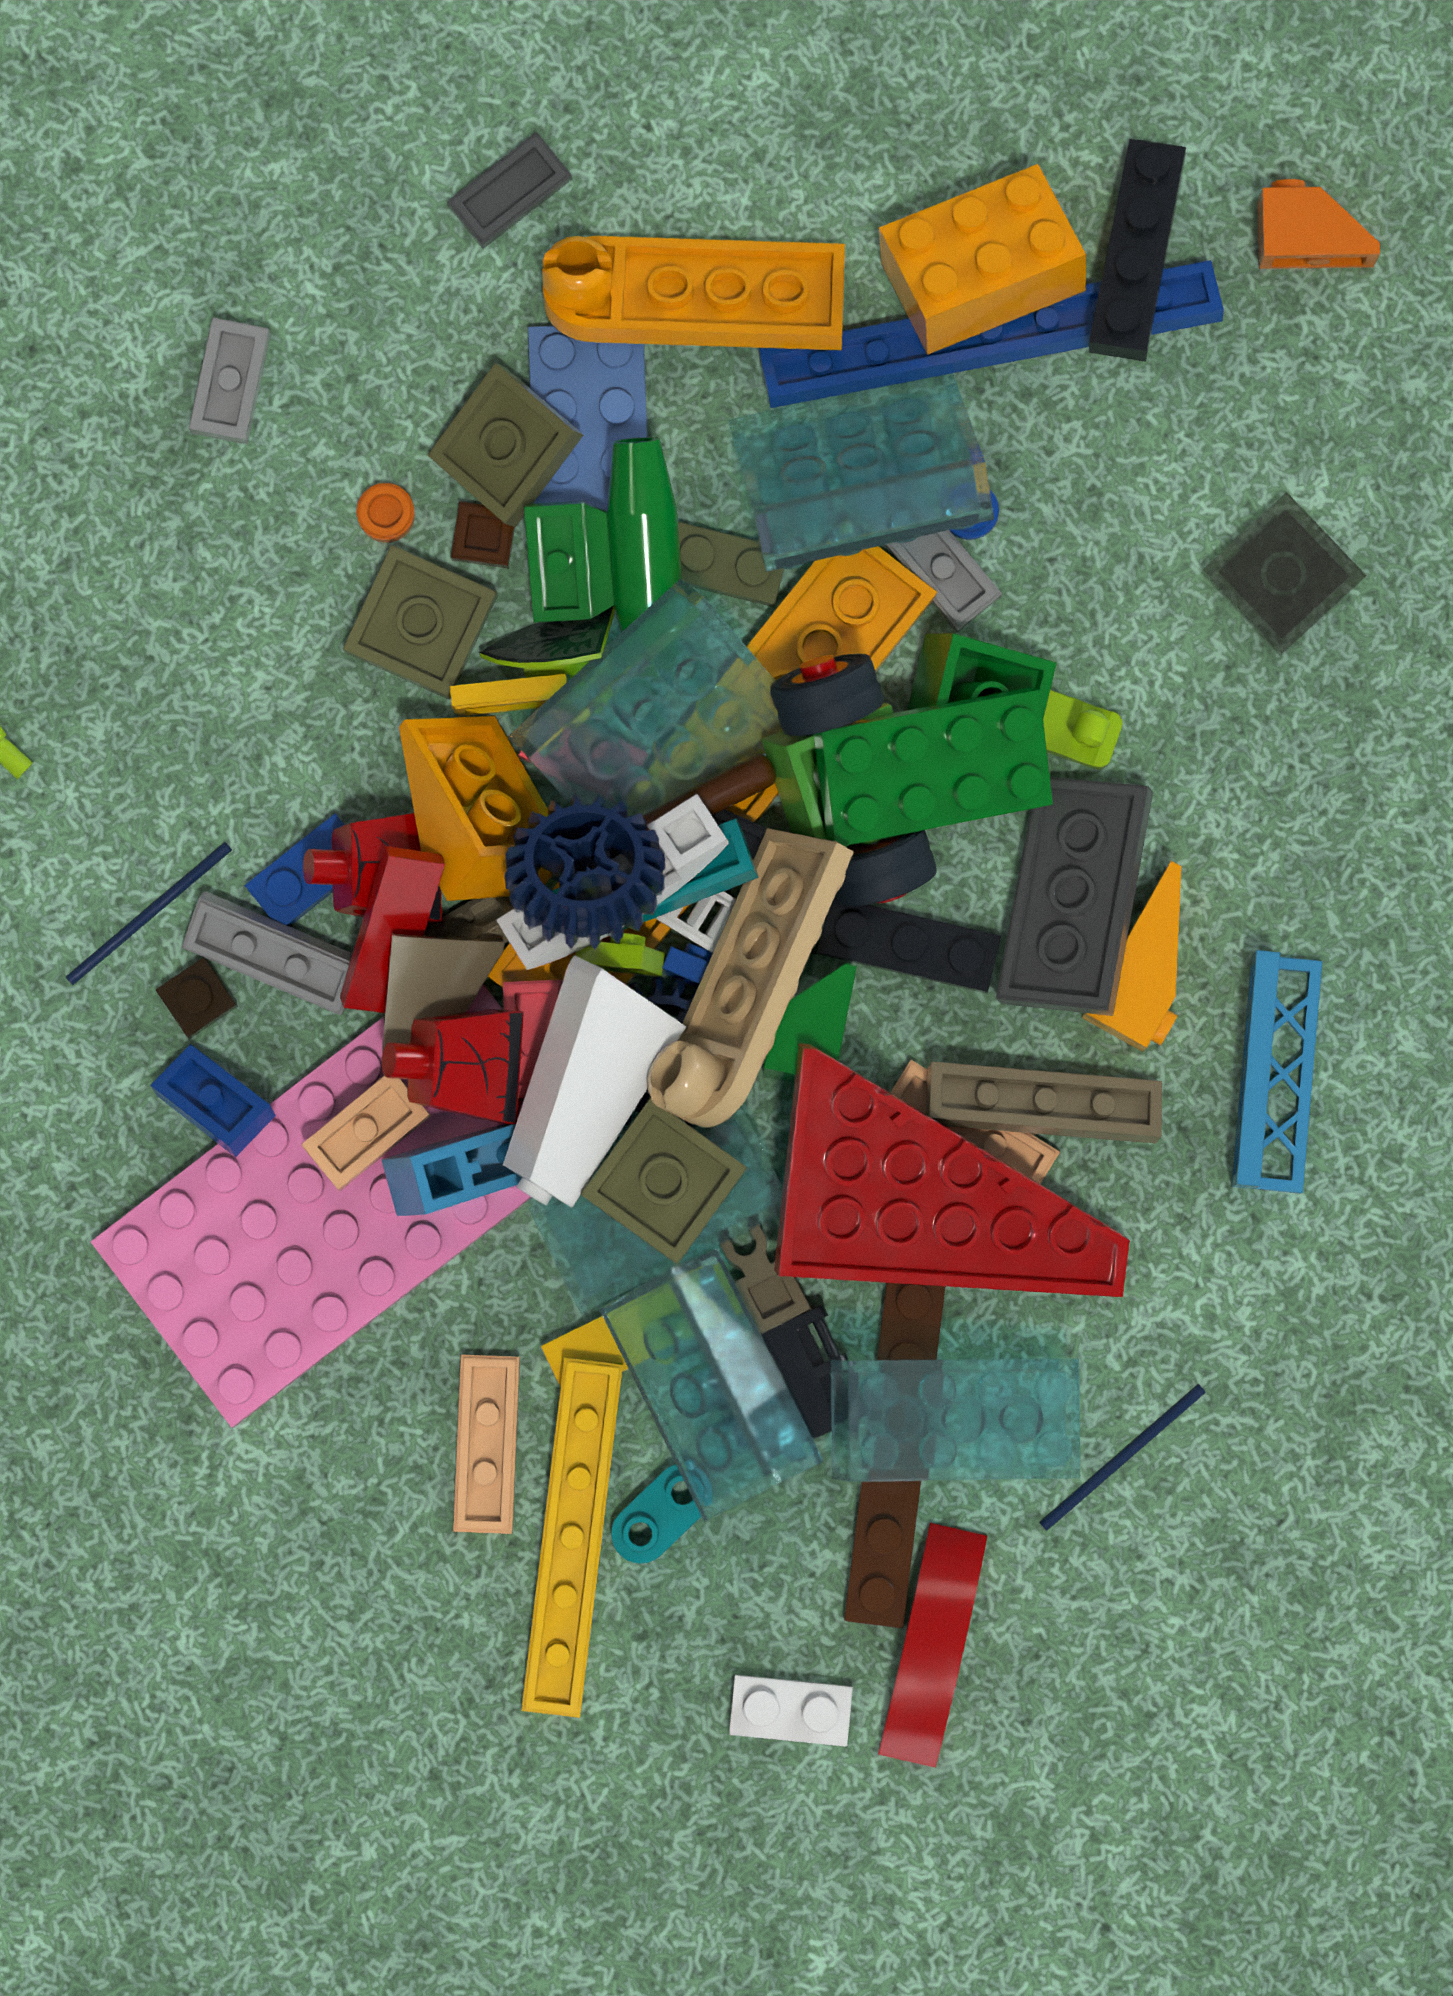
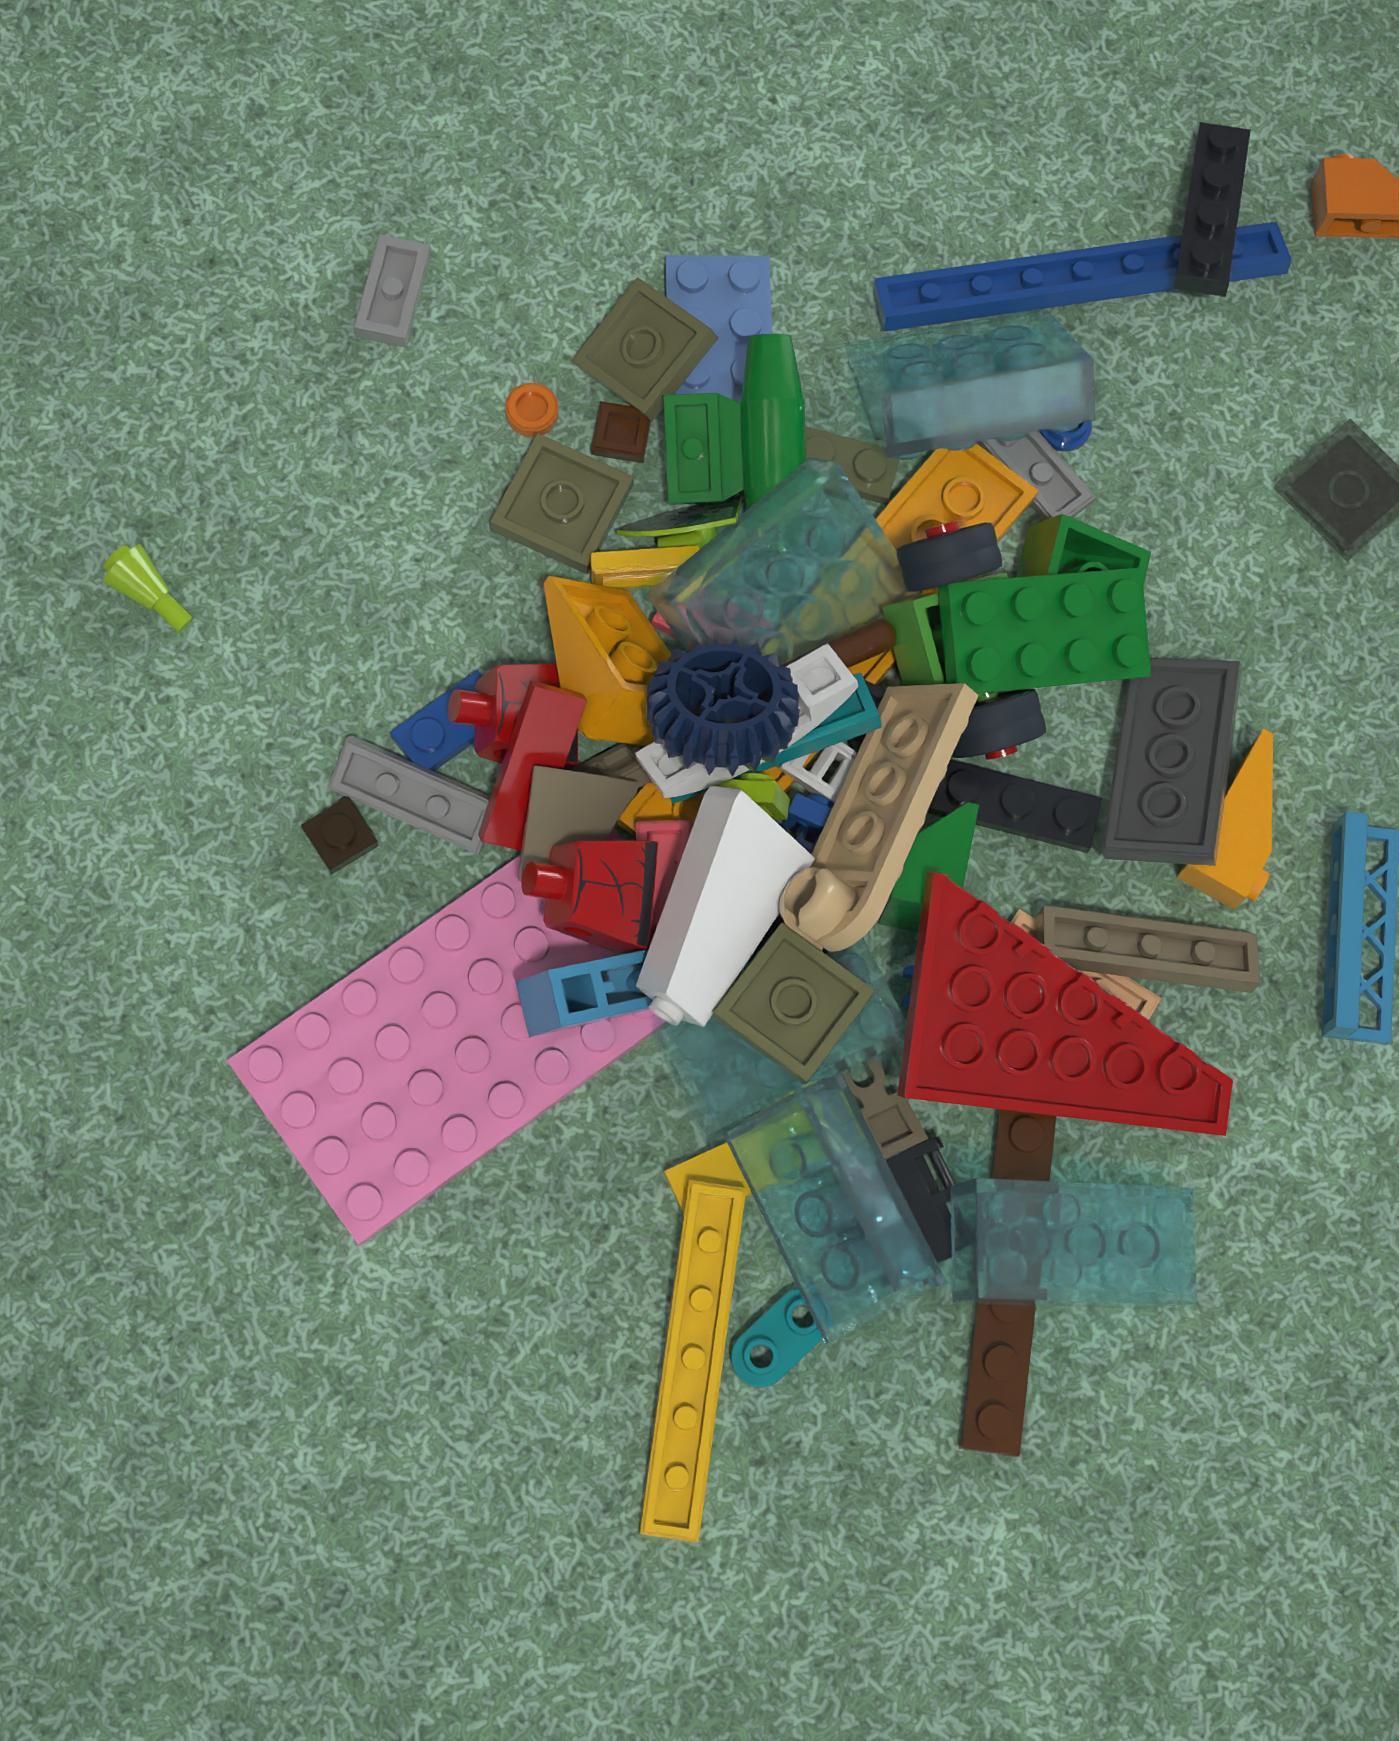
camera: 15 degrees left, 10 degrees down
(146, 915) = (296, 758): dark blue axle -> none
(213, 1100) = (353, 927): blue plate -> none
(365, 1131) = (500, 956): light nougat plate -> none
(486, 1444) = (609, 1267): light nougat tile -> none
(509, 190) = (650, 144): dark grey tile -> none
(696, 292) = (817, 227): light orange plate -> none
(791, 1710) = (908, 1538): white plate -> none
(933, 1645) = (1049, 1476): red slope -> none
(983, 259) = (1077, 206): light orange brick -> none
(1080, 731) = (1174, 619): lime piece -> none
(1122, 1457) = (1227, 1292): dark blue axle -> none

